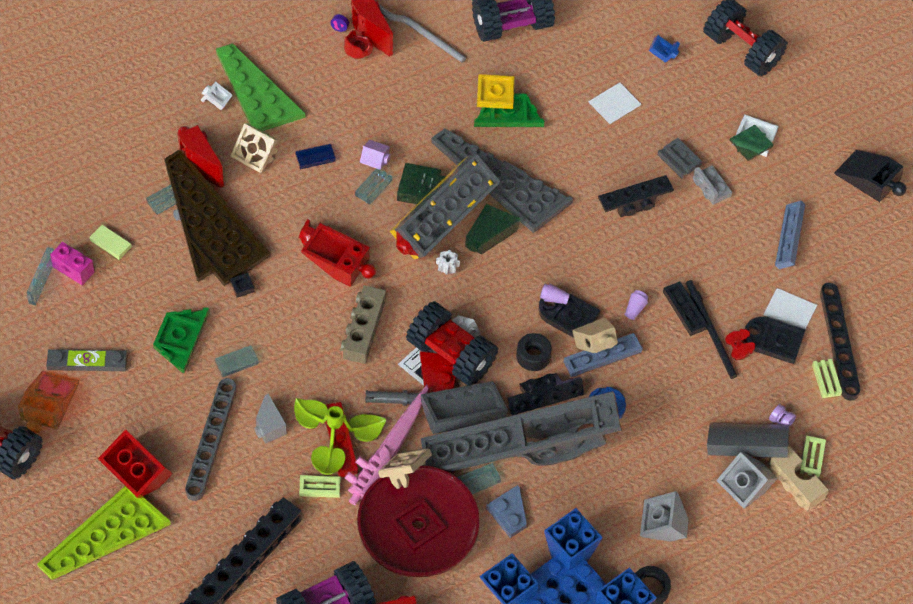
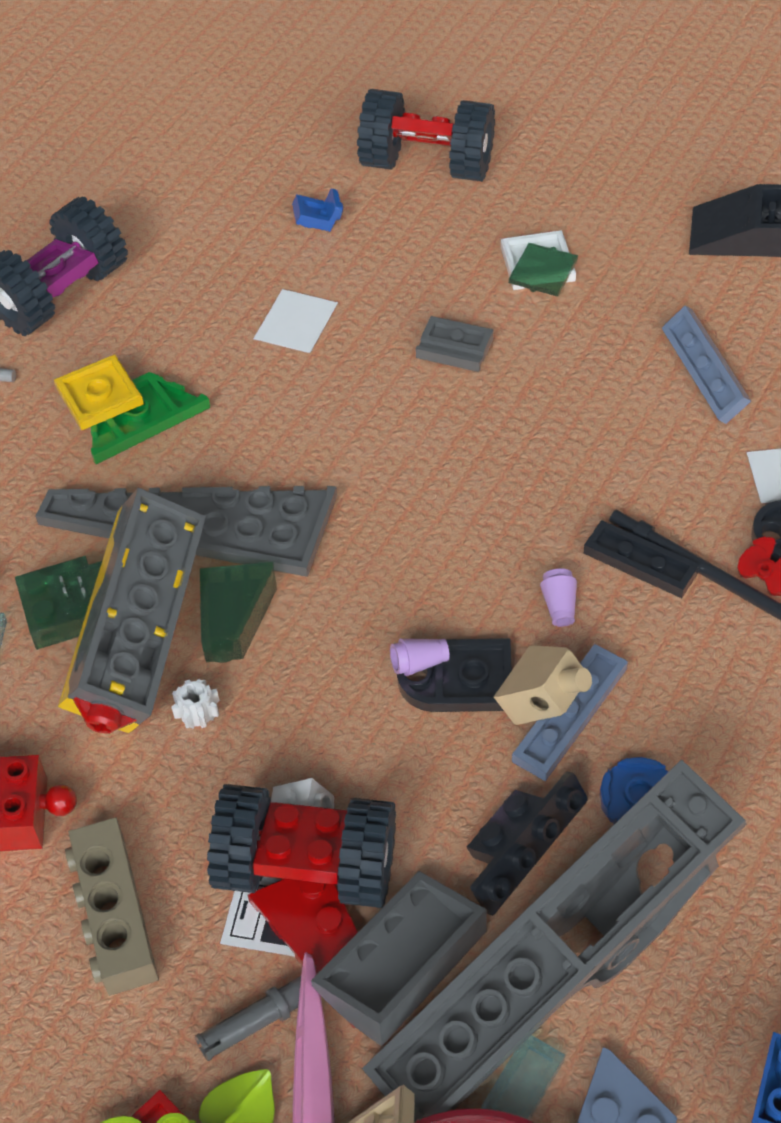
camera: 25 degrees left, 5 degrees down
(532, 362) = (446, 753): black tyre -> none
(636, 197) = (435, 430): black bracket -> none
(711, 184) = (530, 356): light grey bracket -> none

